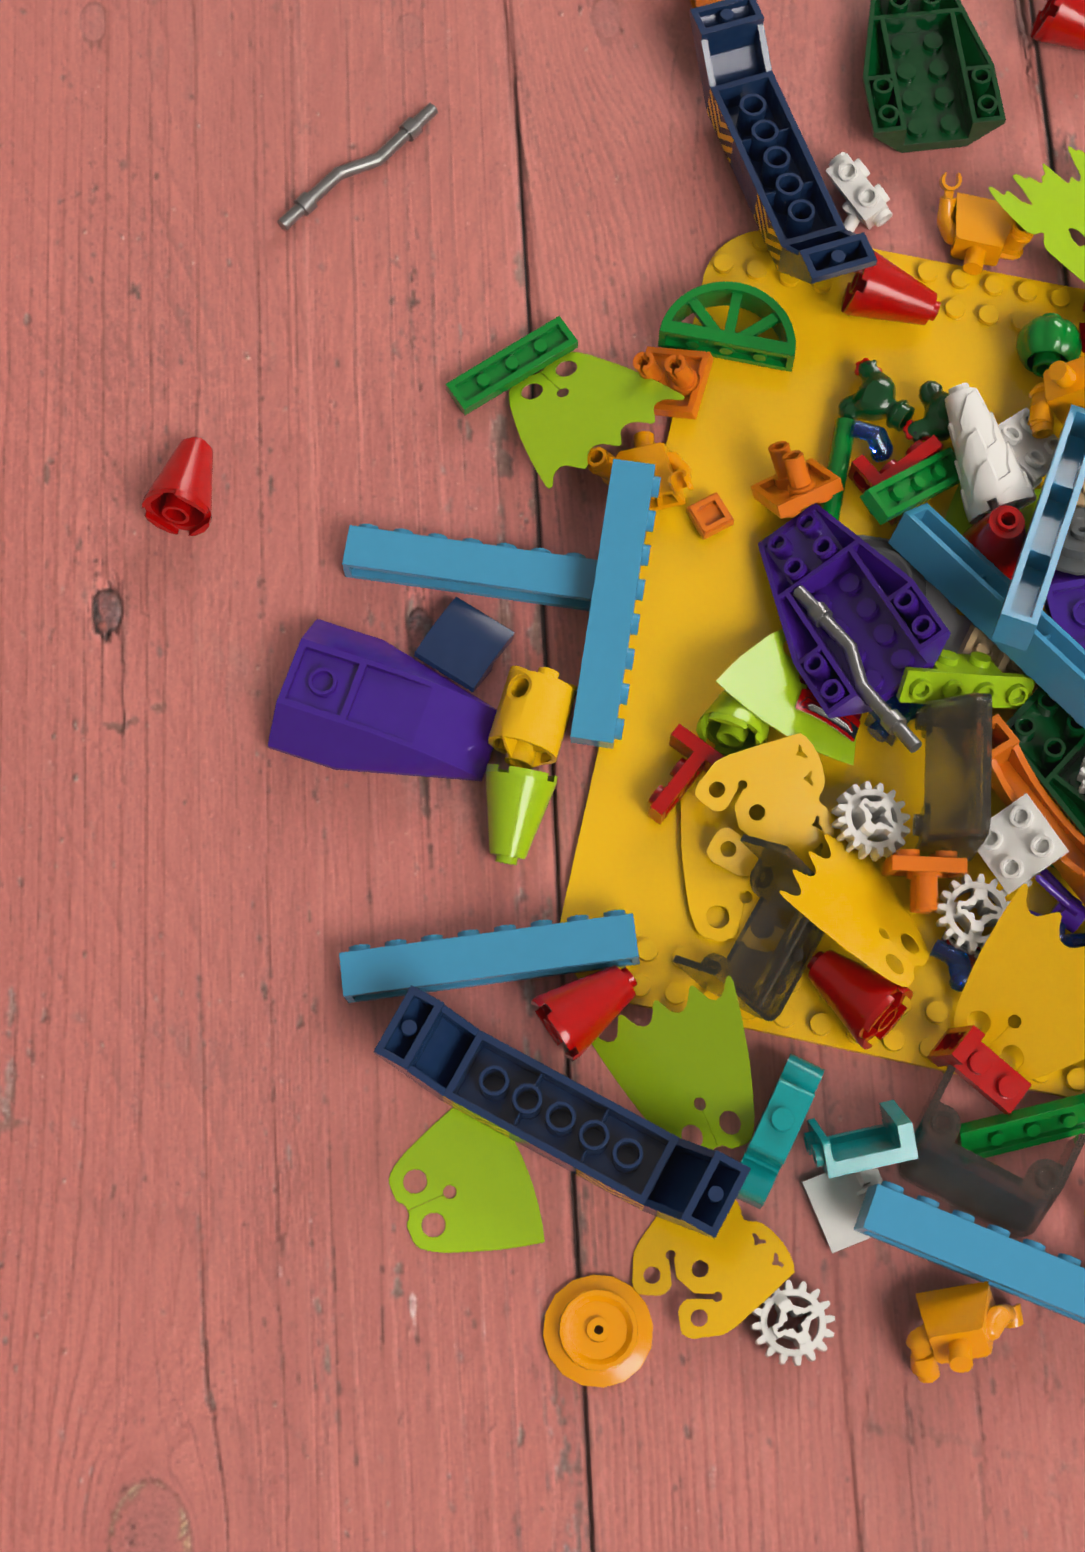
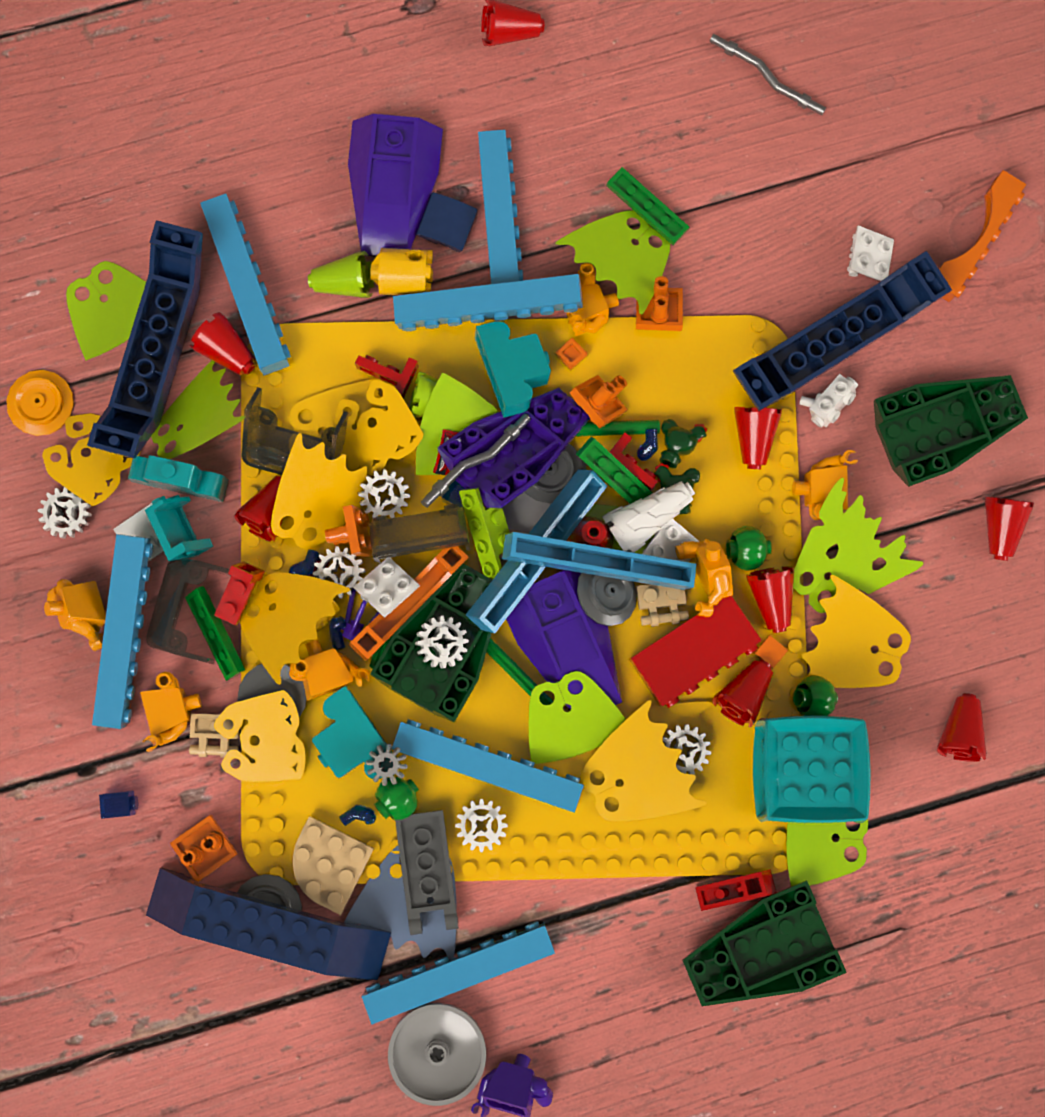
camera: 70 degrees right, 10 degrees up
(656, 96) = (870, 254): none -> white hinge
(717, 594) = (512, 365): none -> teal brick
(726, 343) = (694, 344): green window -> none

